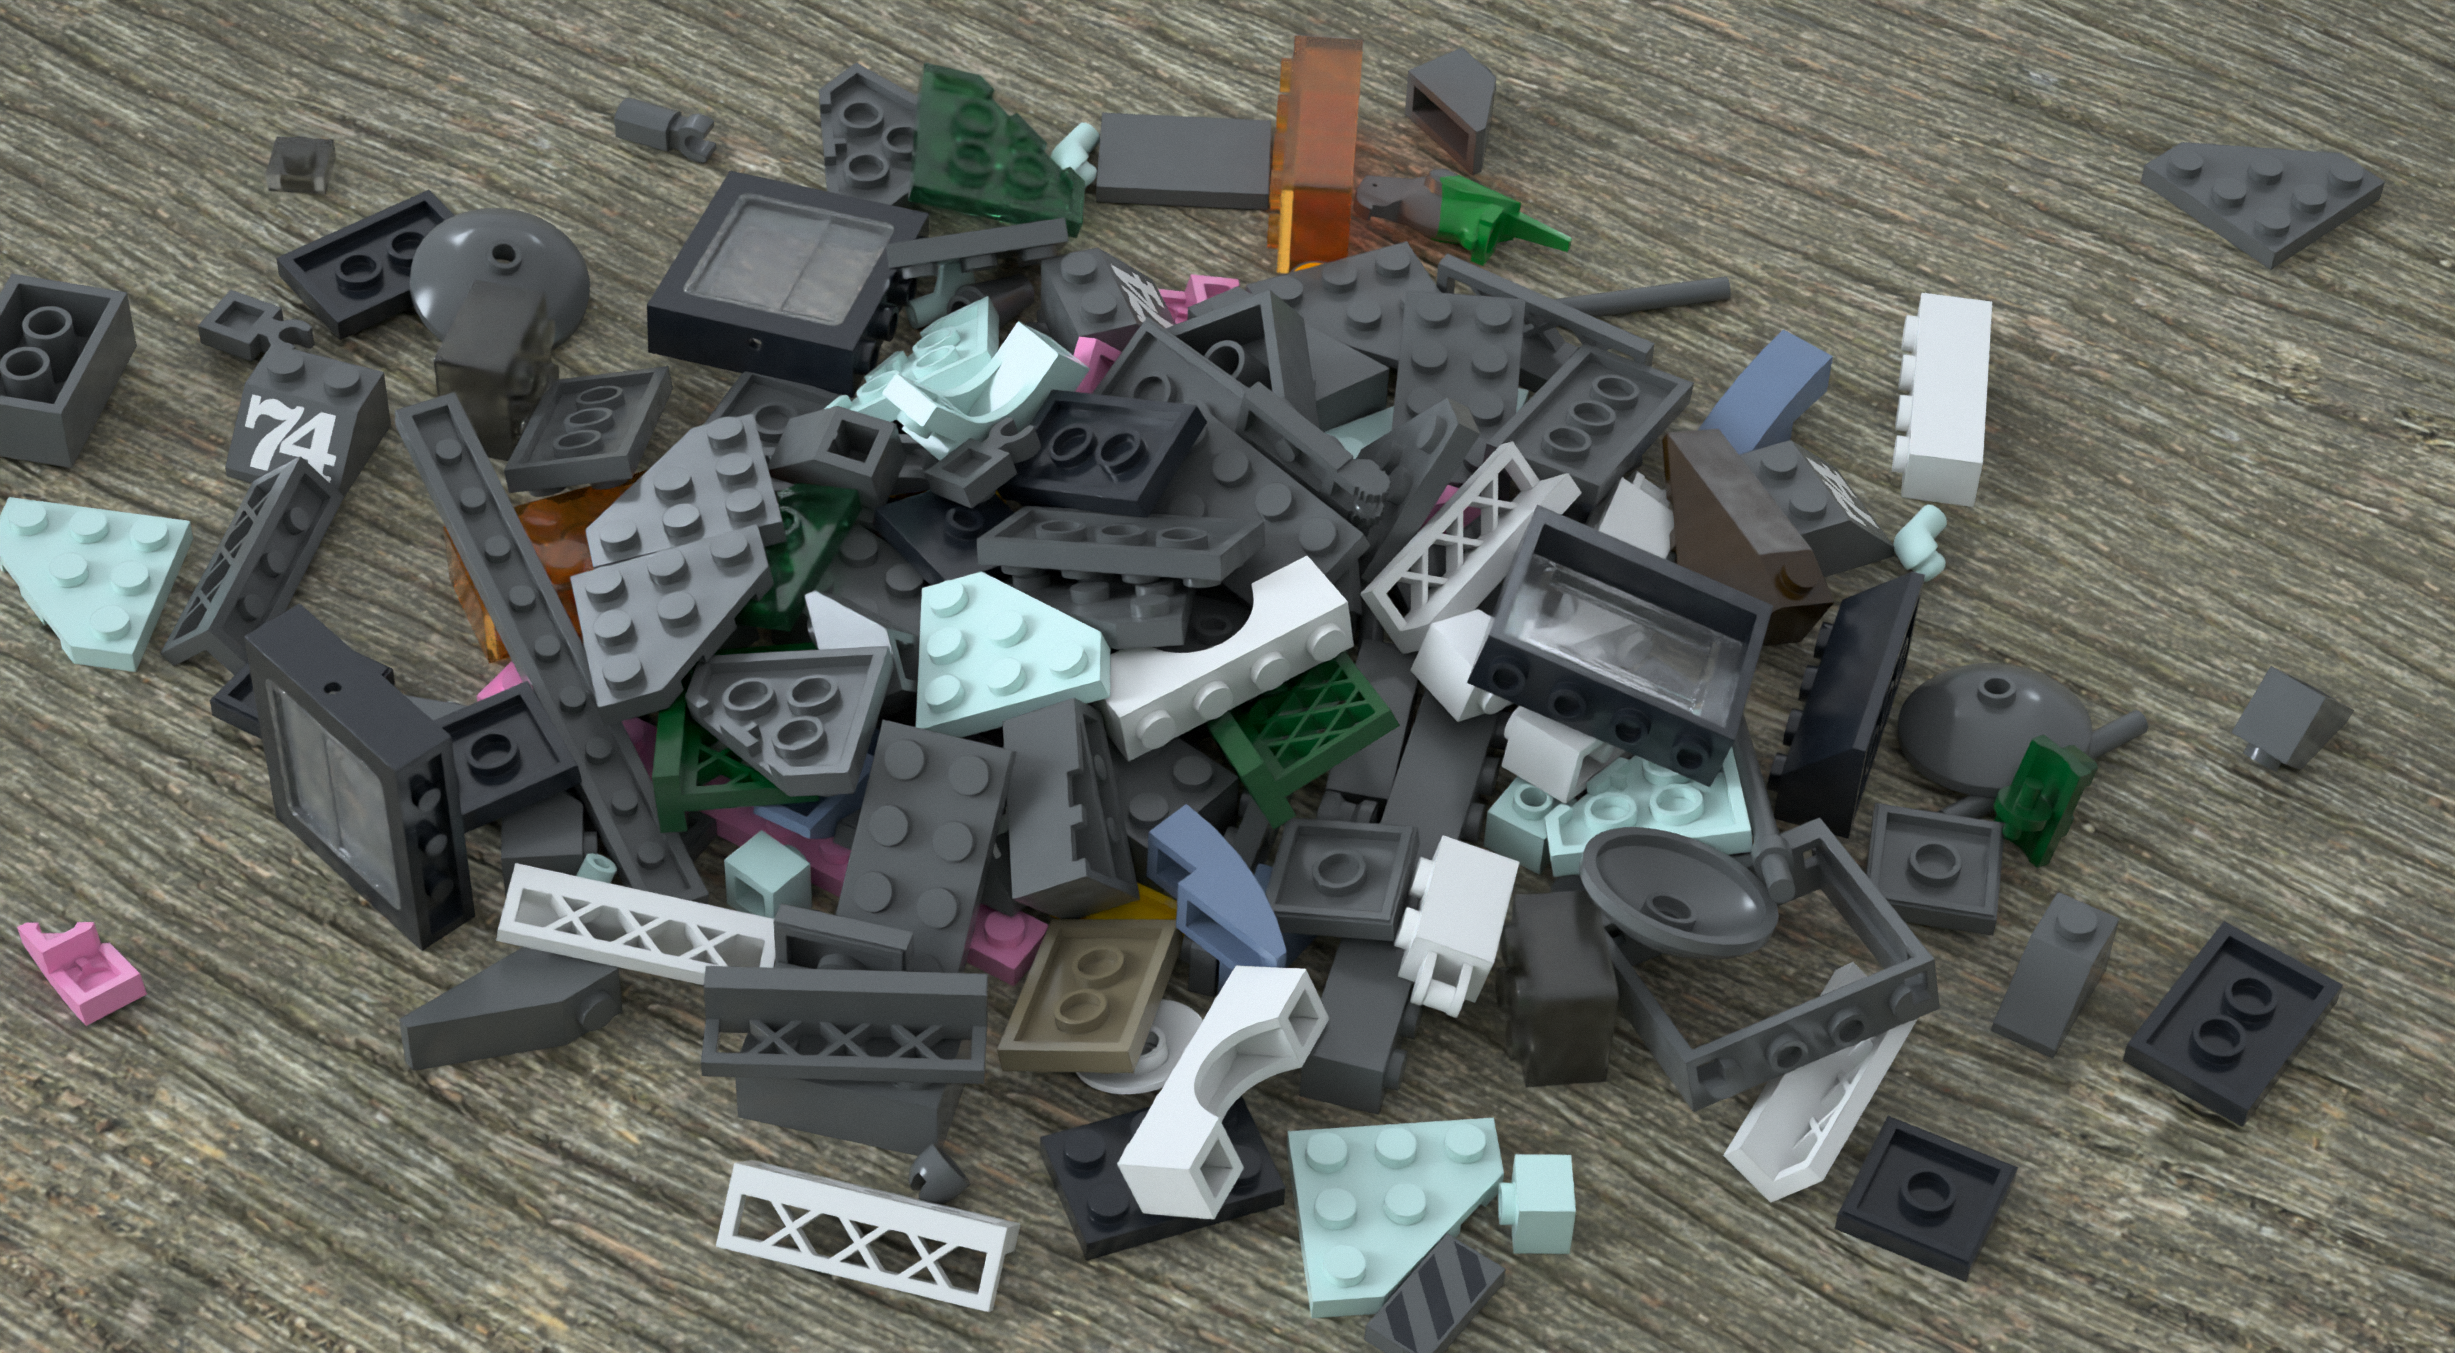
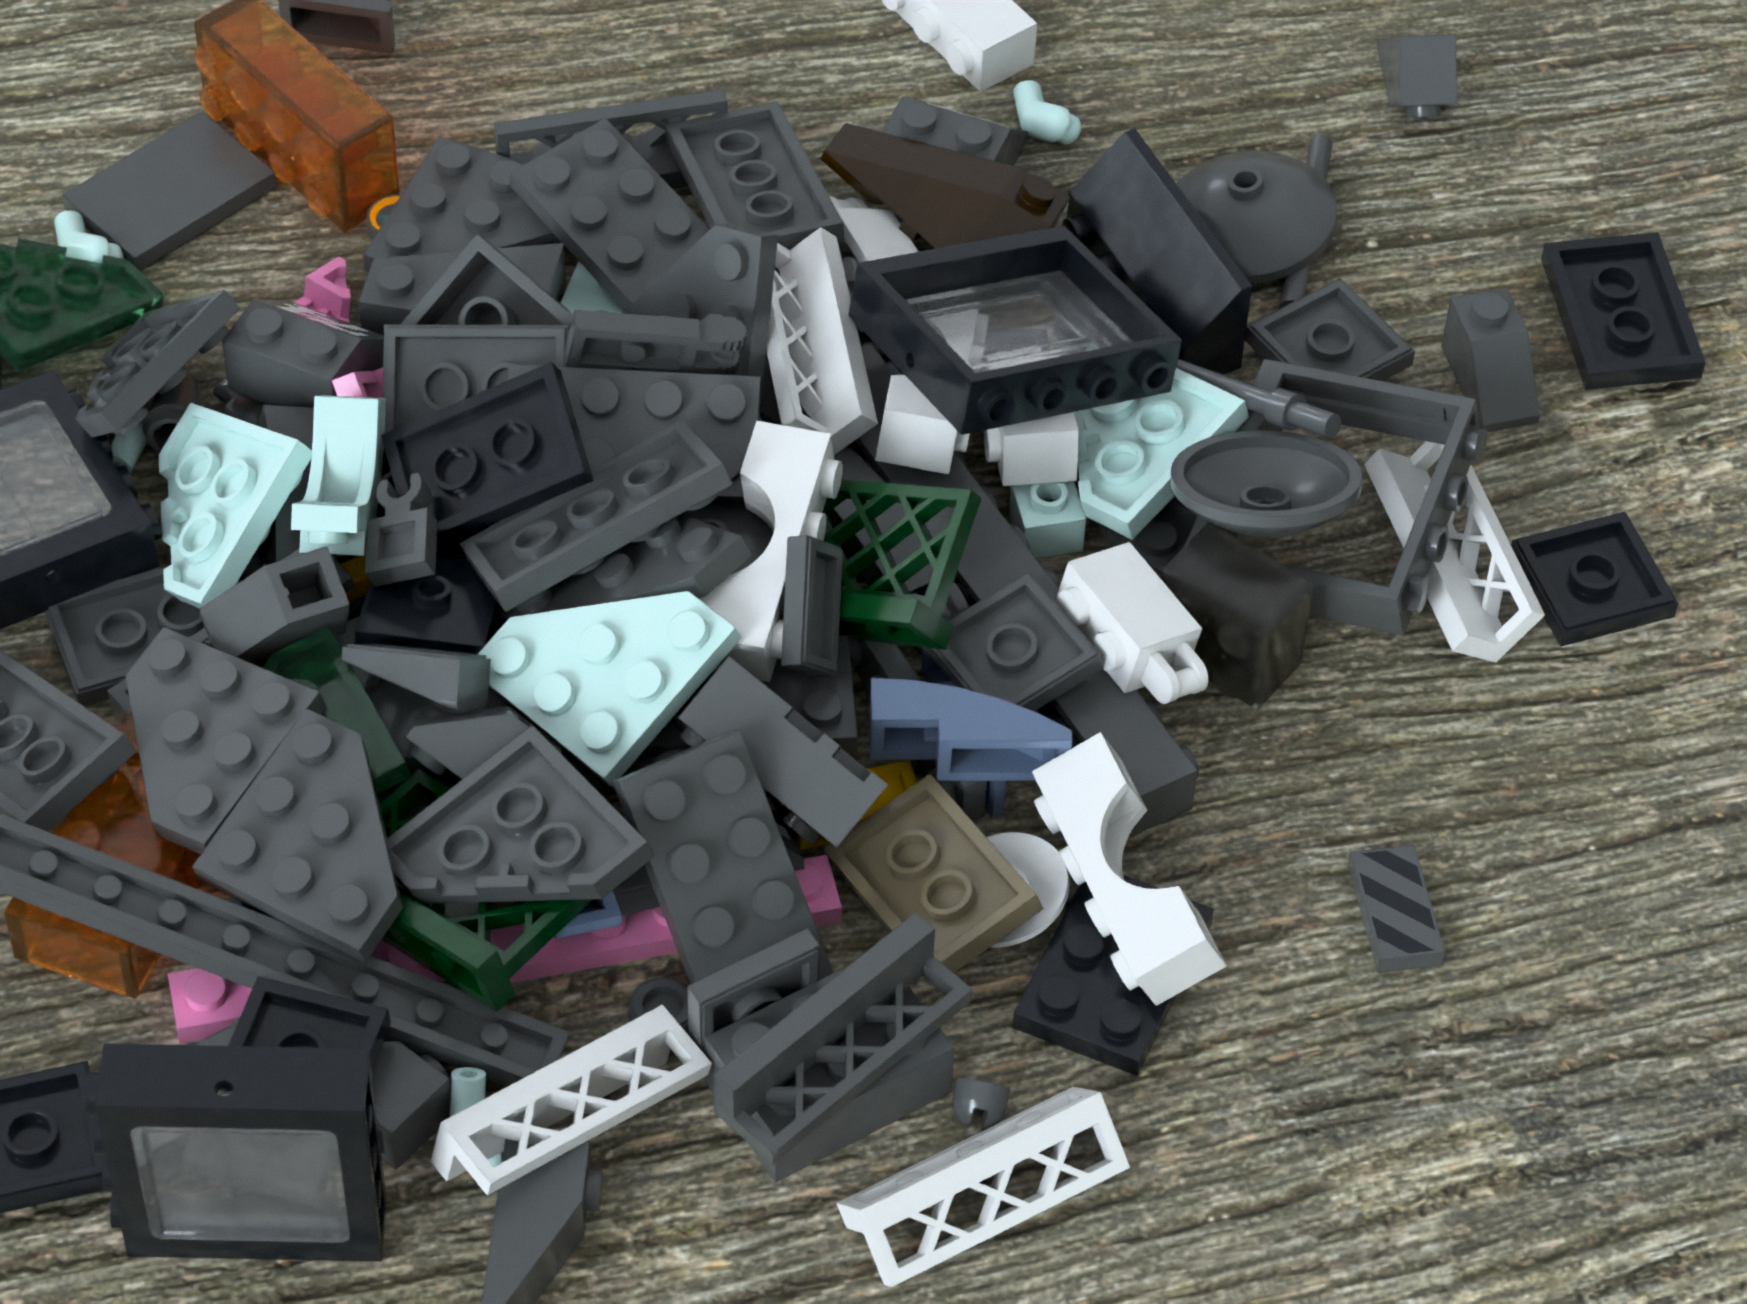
camera: 45 degrees left, 5 degrees up
(767, 875) = (593, 988): light aqua plate -> none
(879, 568) = (442, 676): none -> dark grey slope
(1197, 718) = (812, 606): none -> dark grey tile
(1382, 1201) = (1279, 868): light aqua plate -> none
(1453, 211) = (447, 84): animal -> none
(1539, 1204) = (1385, 780): light aqua plate -> none
(1649, 297) = (642, 59): dark grey bar -> none
(1771, 394) = (829, 83): sand blue slope -> none
(2043, 797) = (1356, 238): dark green hips -> none

